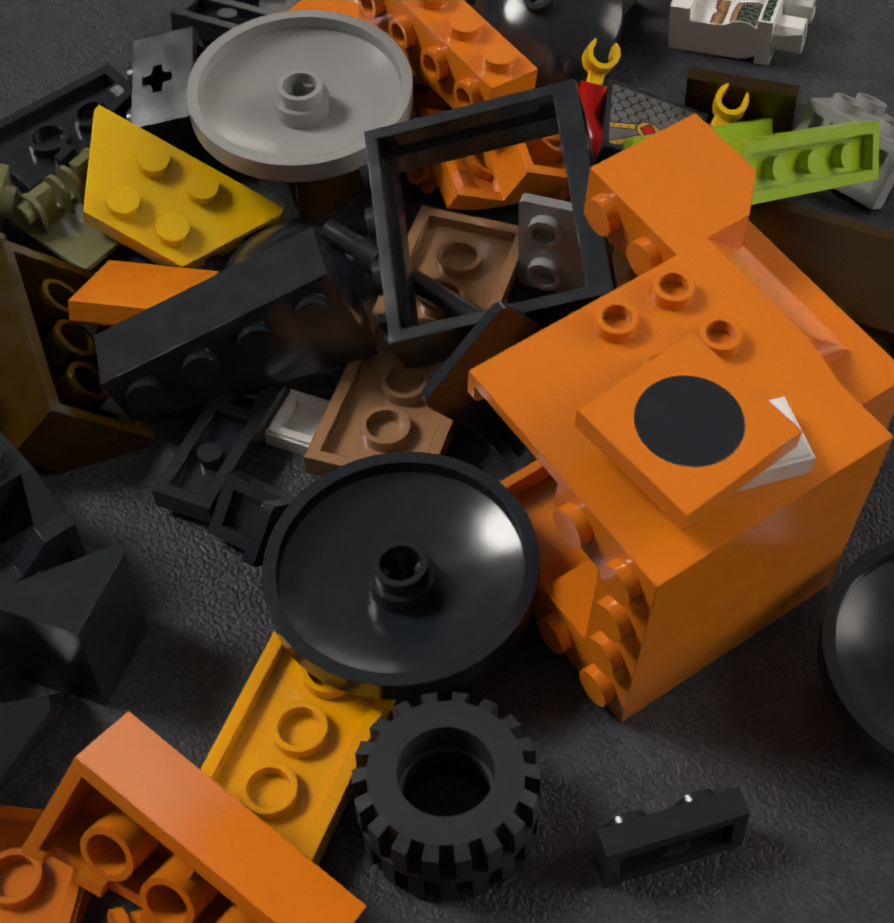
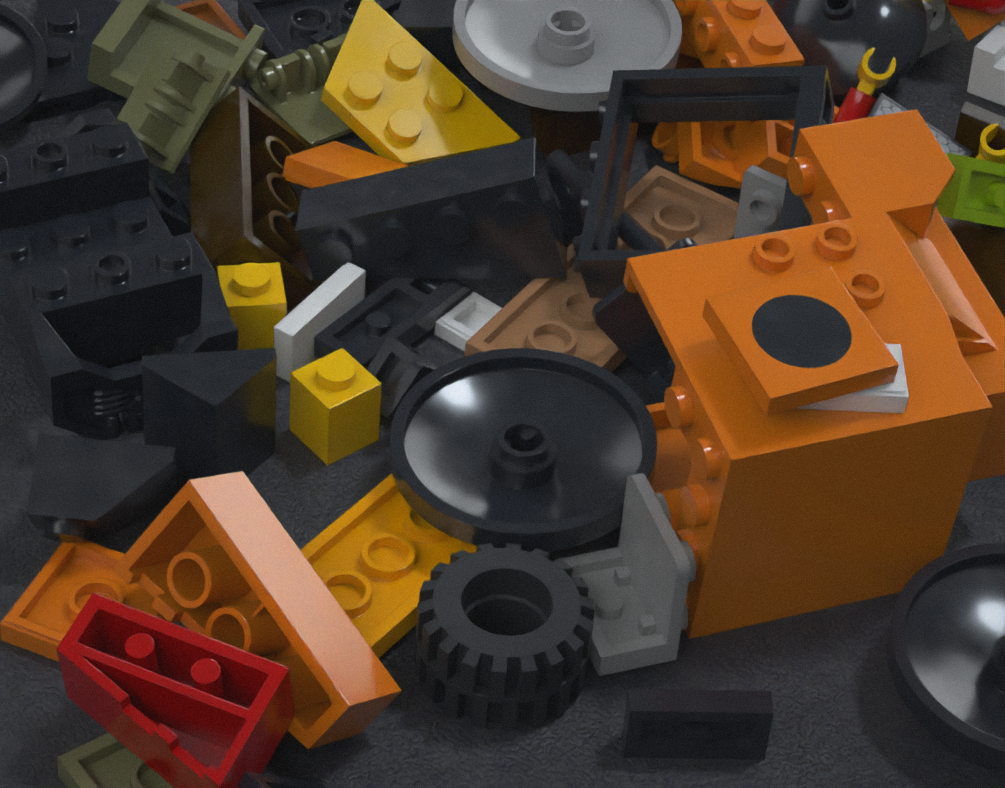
camera: 10 degrees right, 10 degrees down
(82, 478) = (254, 301): none -> yellow brick
(133, 494) = (321, 308): none -> white tile
(195, 566) = (334, 406): none -> yellow brick
(560, 694) = (638, 585): none -> light grey bracket

